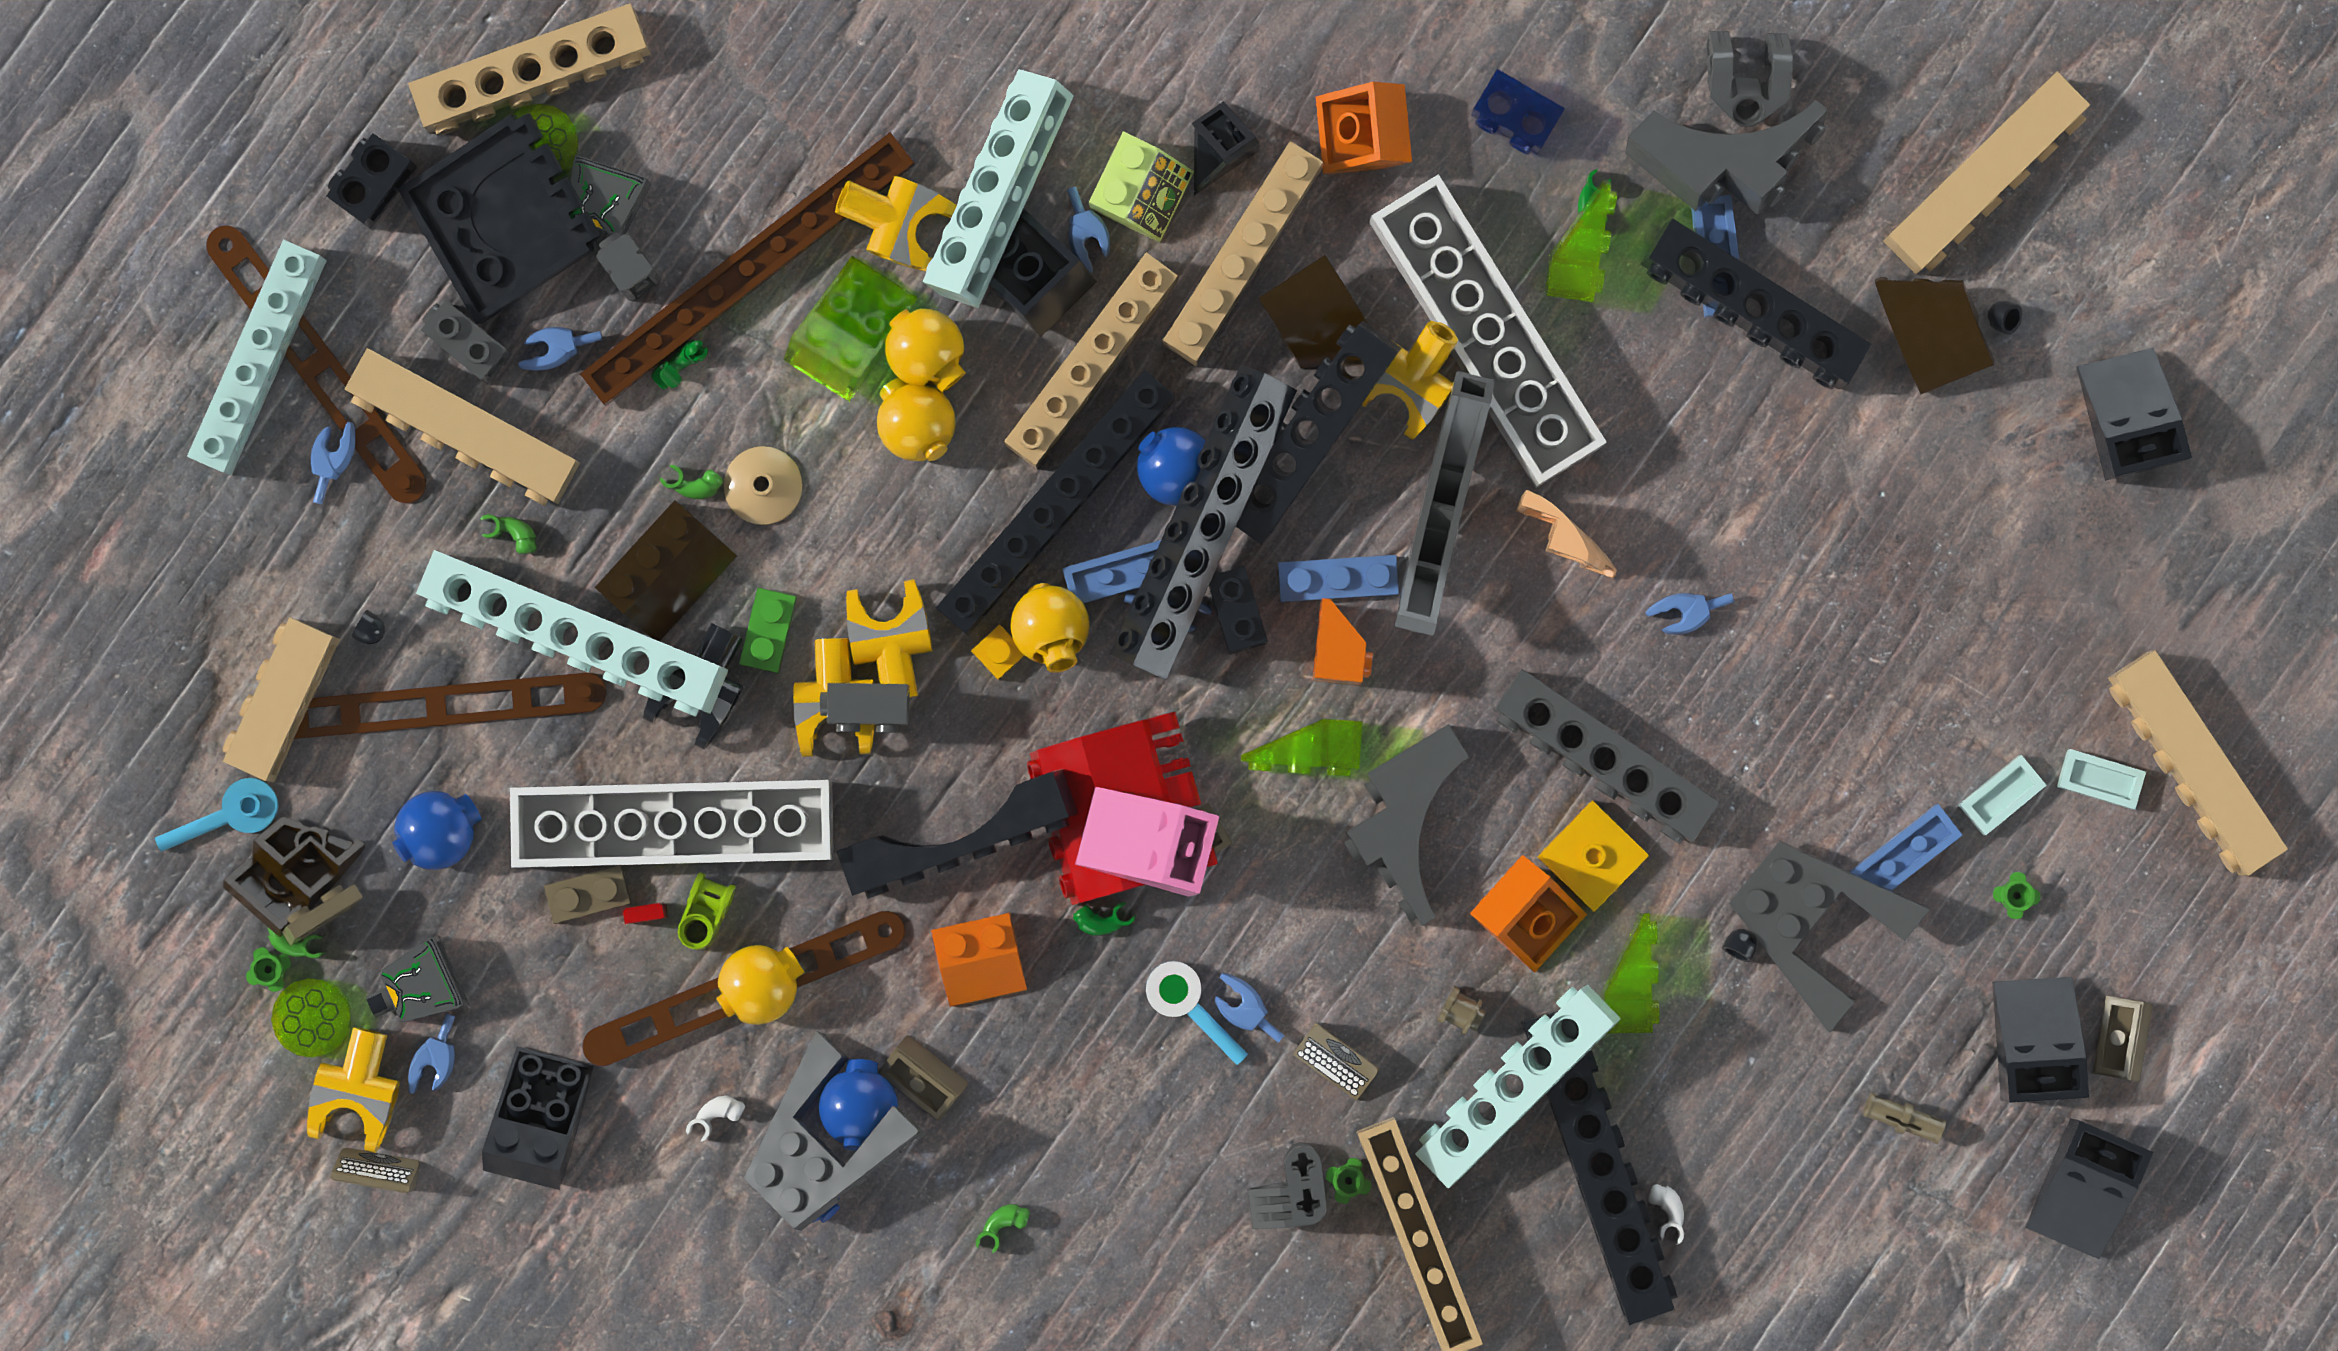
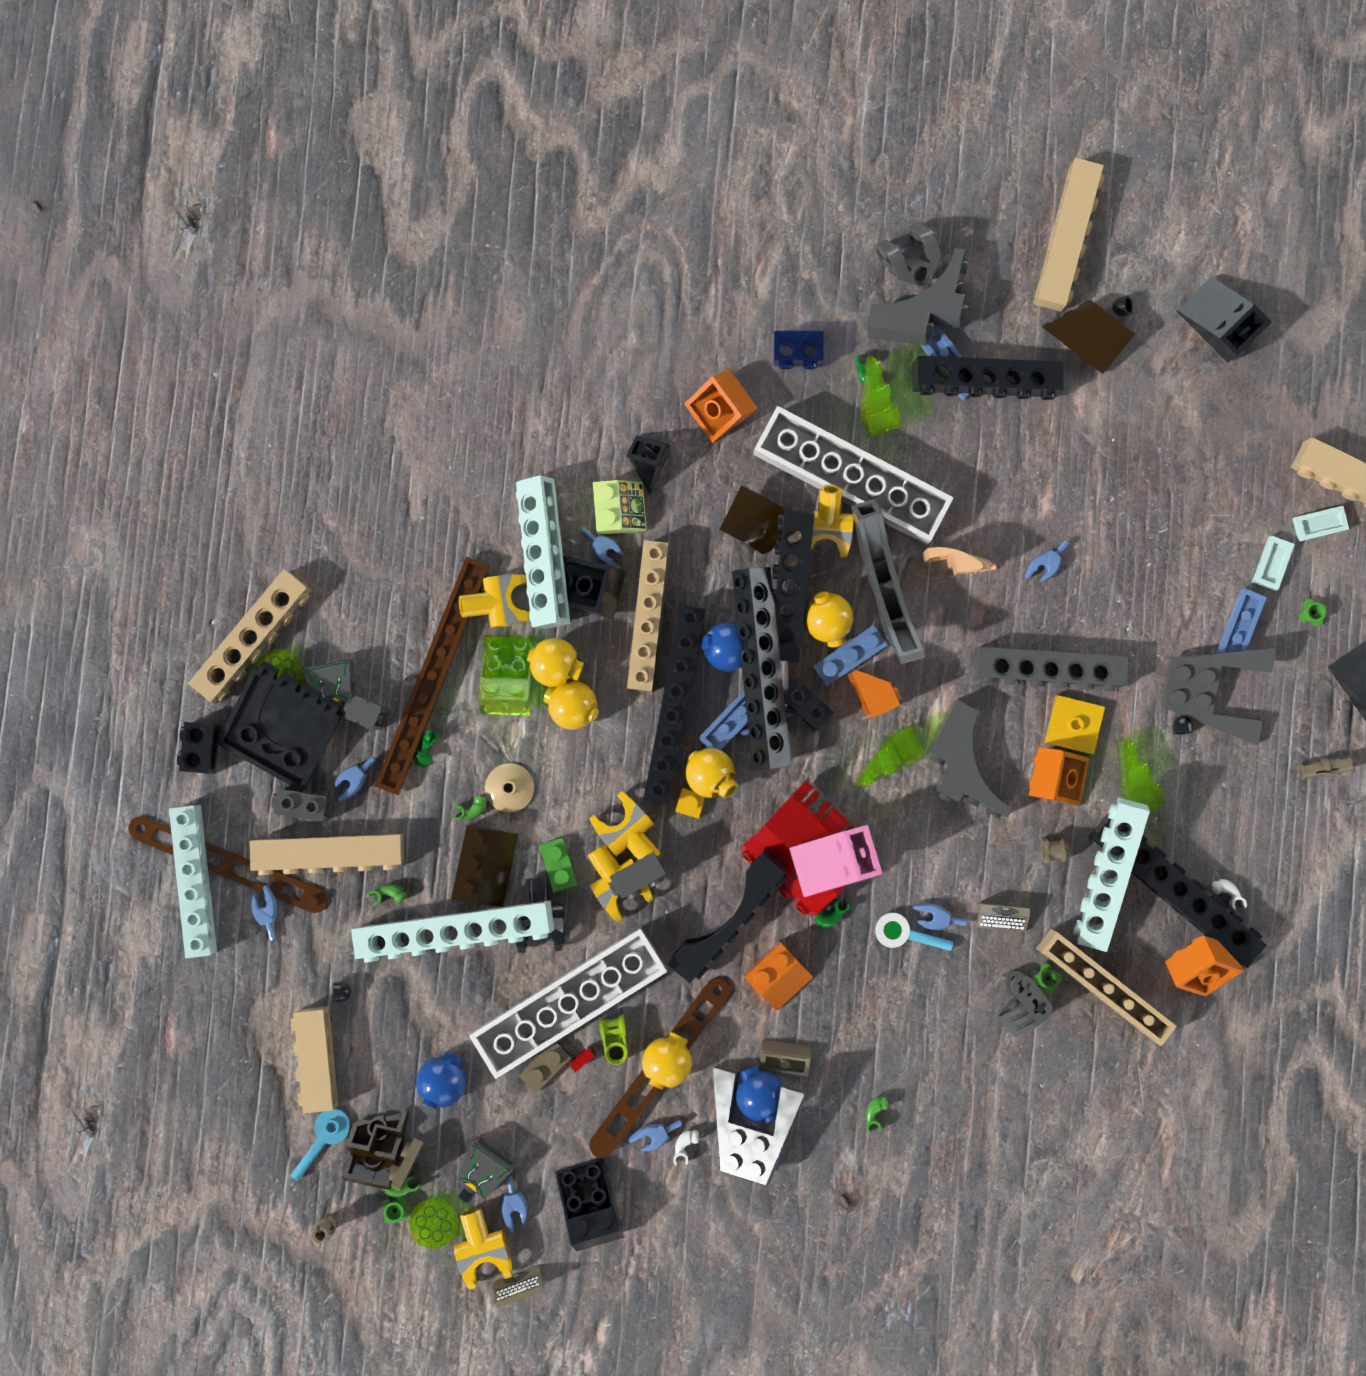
camera: 30 degrees left, 0 degrees up
(163, 930) = (325, 1228): none -> dark tan pin
(581, 694) = (476, 958): reddish brown piece -> none
(688, 1076) = (656, 1132): none -> medium blue hand
(1243, 253) = (695, 510): tan brick -> none
(1338, 509) = (829, 618): none -> yellow brick
(1569, 1288) = (1203, 966): none -> orange slope

